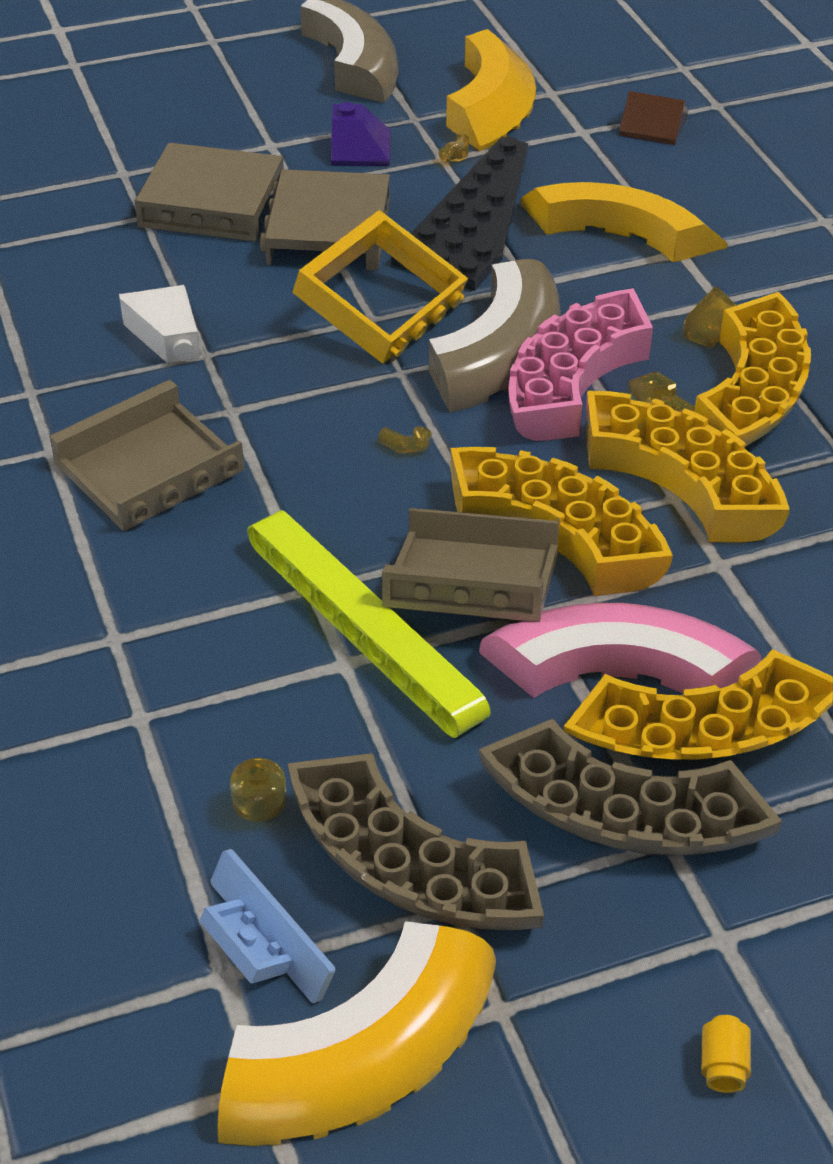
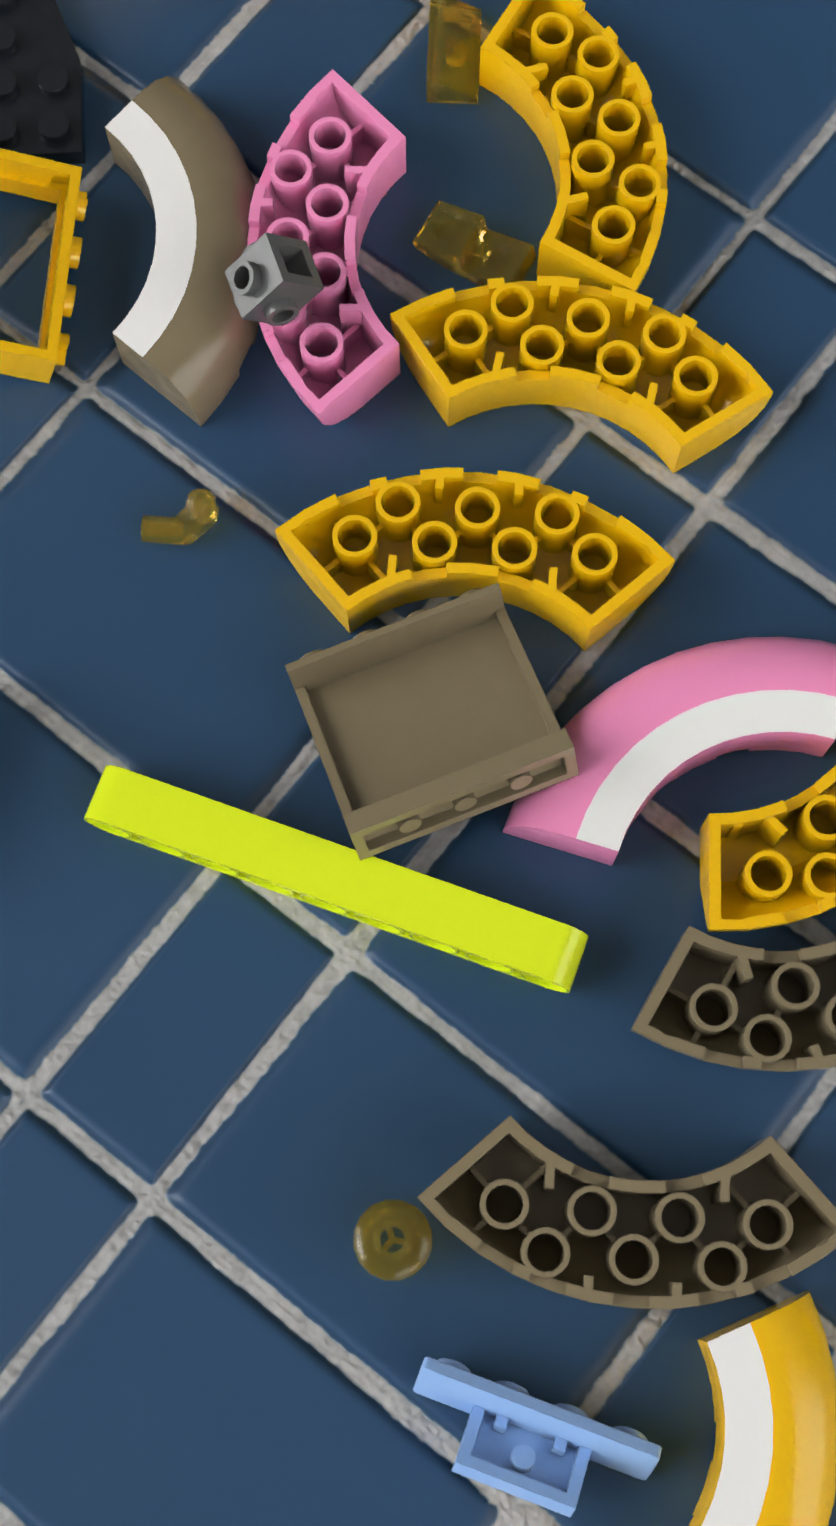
camera: 30 degrees left, 30 degrees up
(529, 340) = (273, 279): none -> dark grey brick

